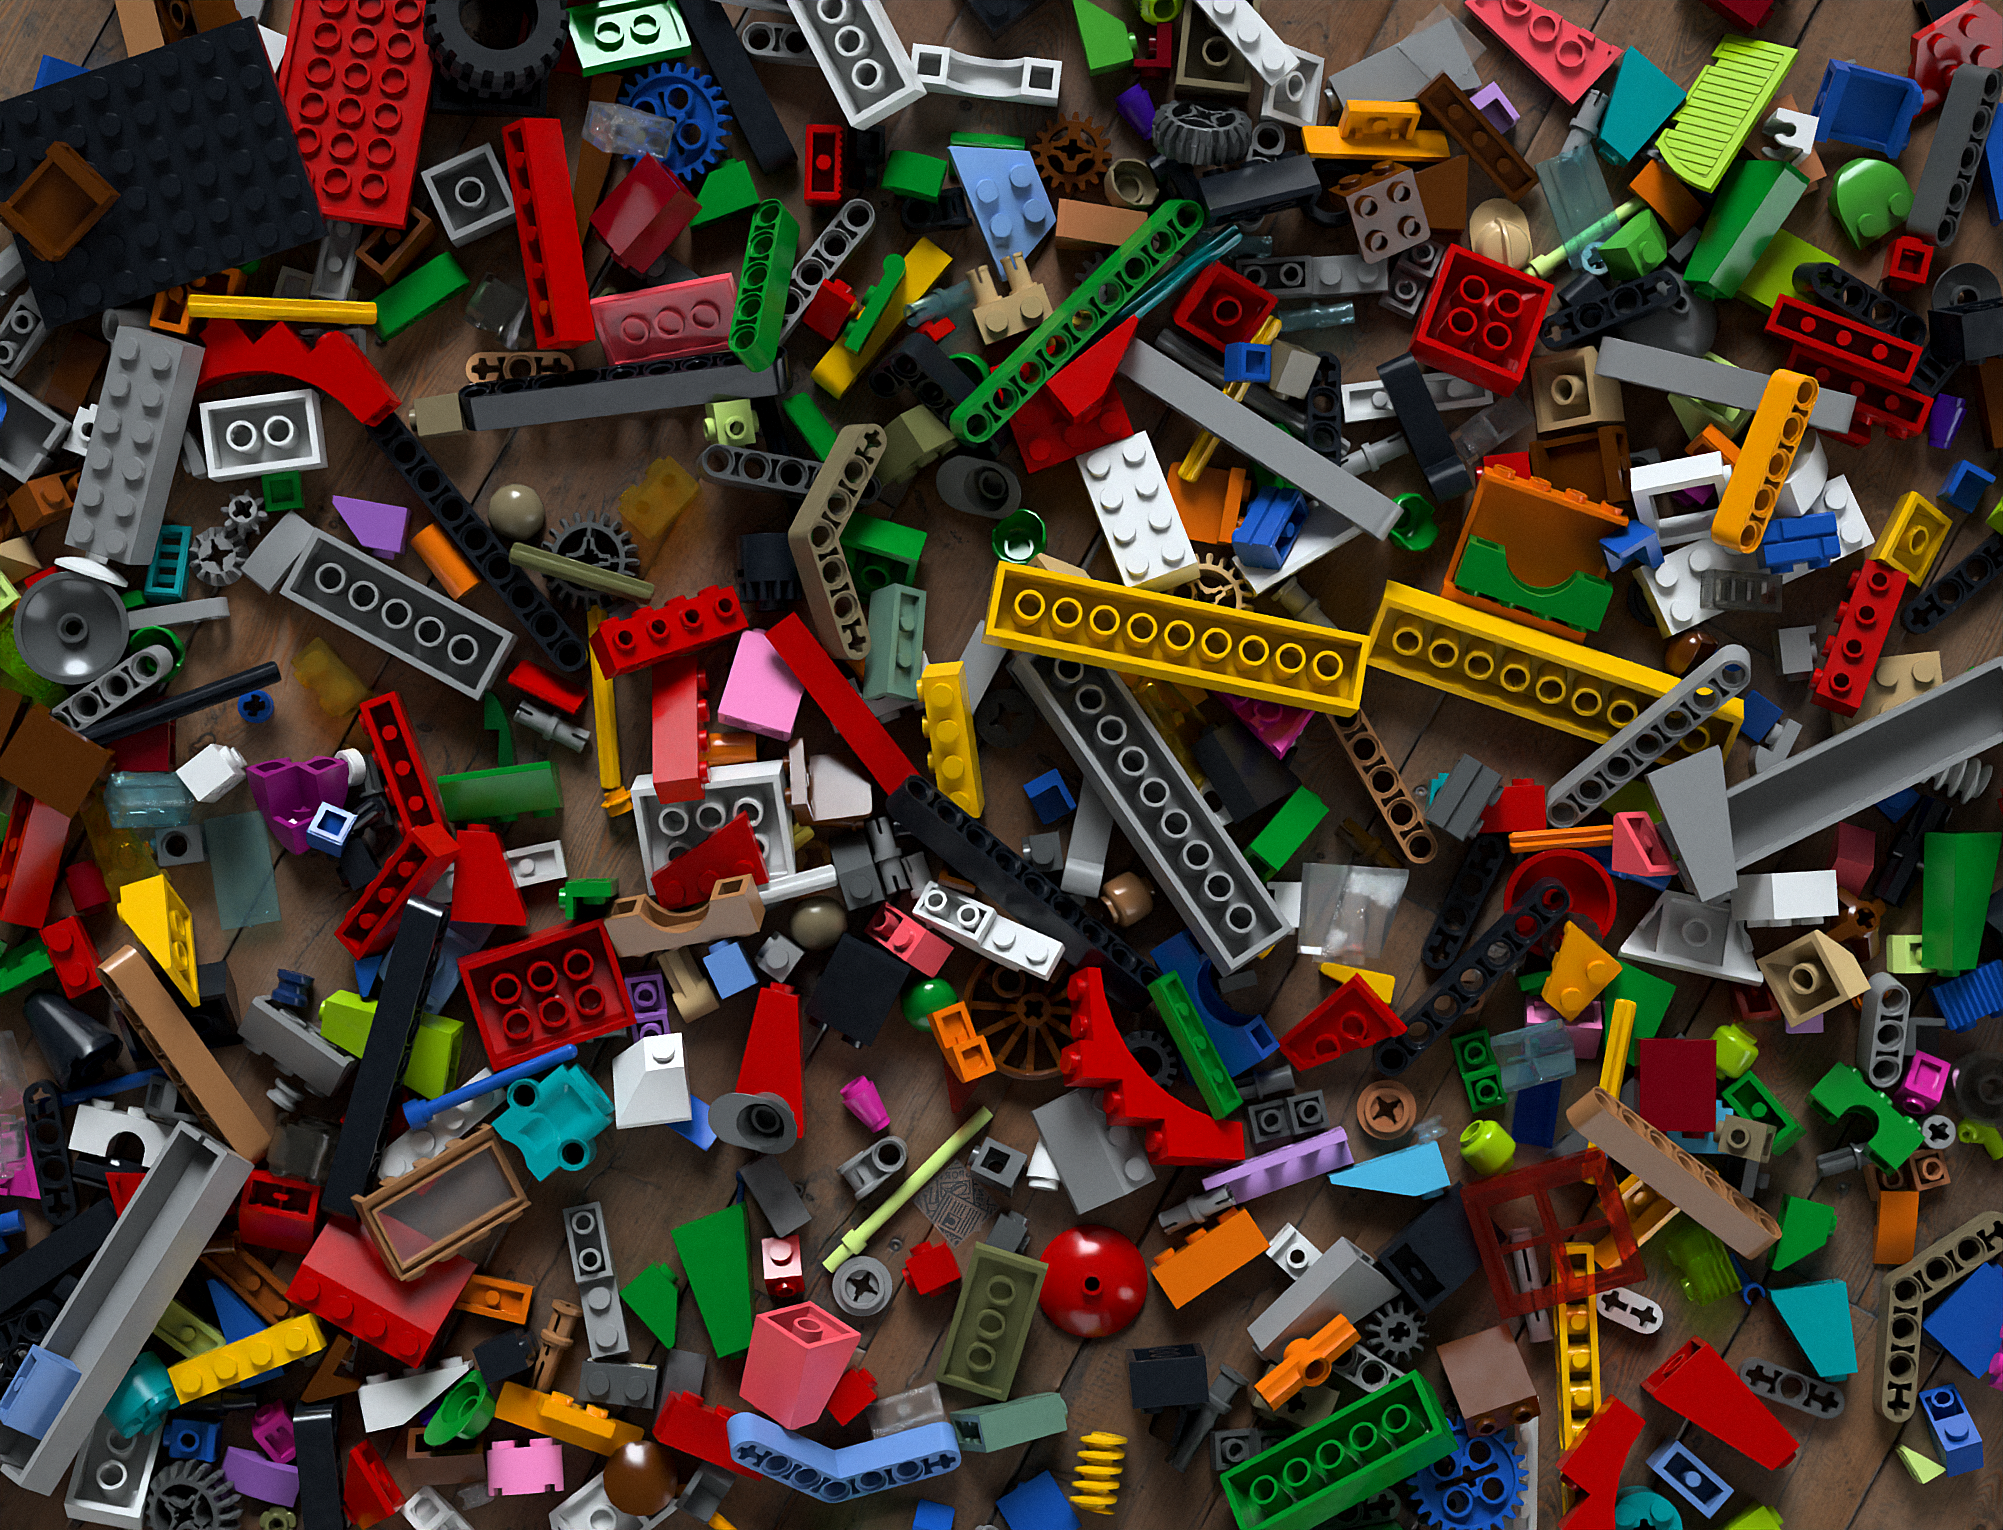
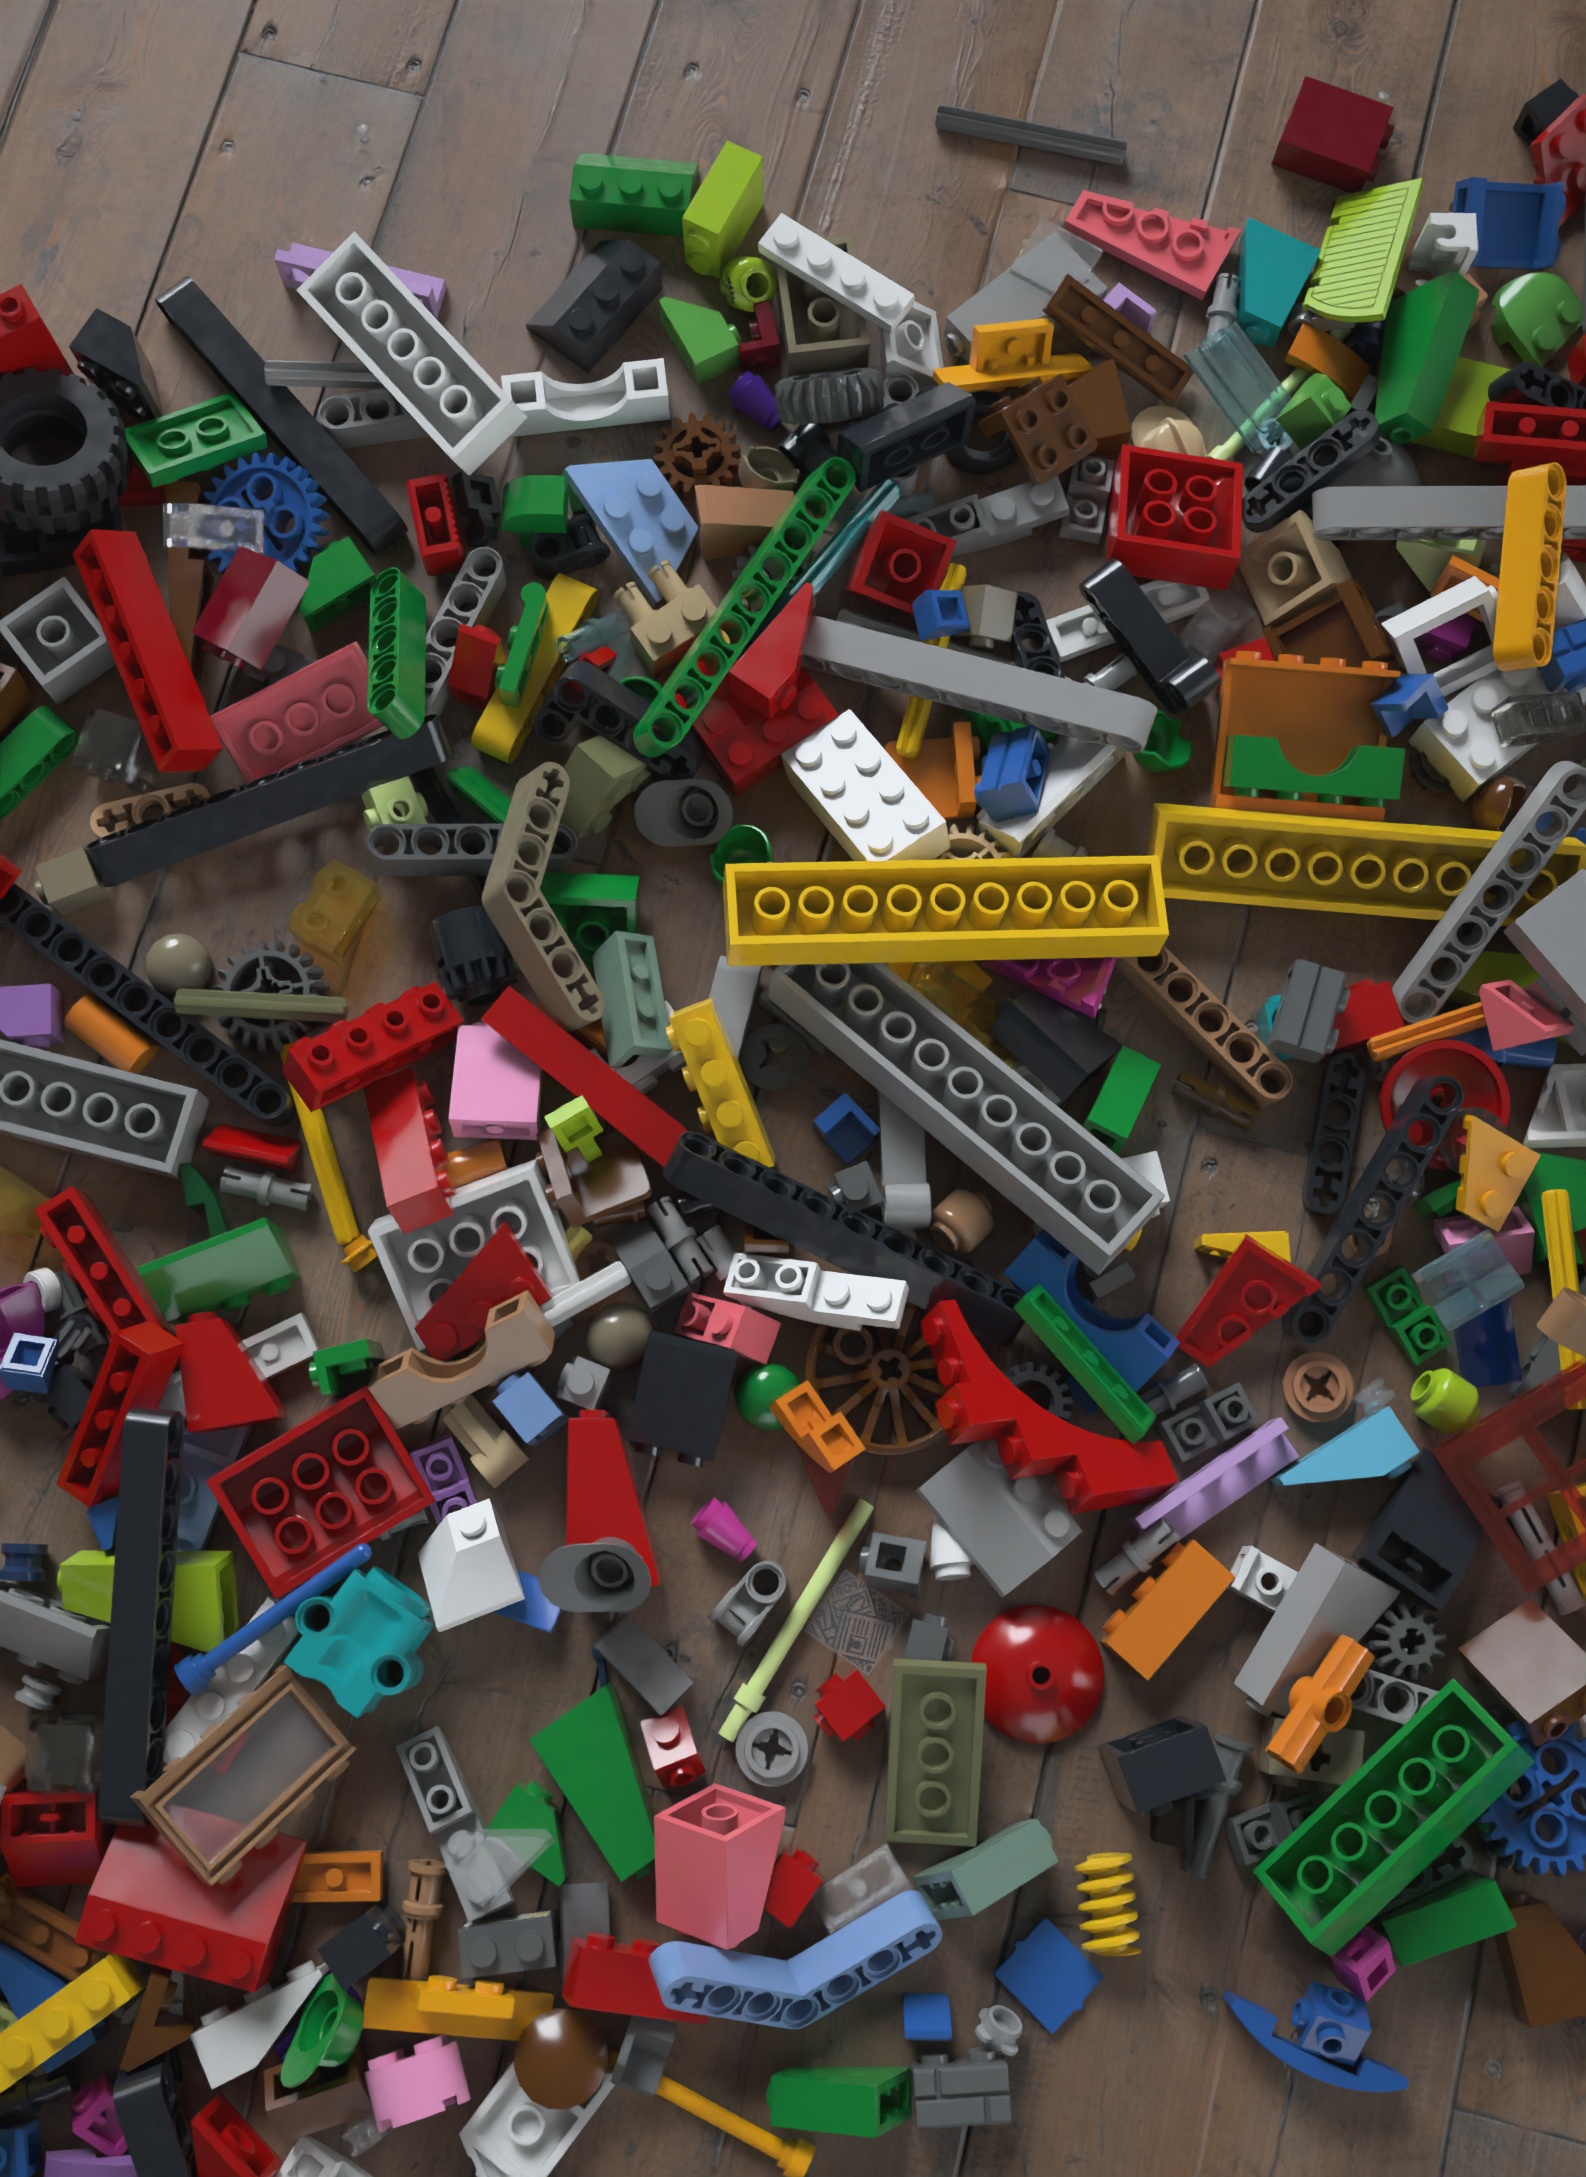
camera: 20 degrees left, 10 degrees down
(624, 1316) = (495, 1860): none -> clear slope
(822, 743) = (575, 1127): none -> lime plate
(1317, 317) = (1001, 560): clear light blue pin -> none
(1347, 910) = (1214, 1166): clear slope -> none

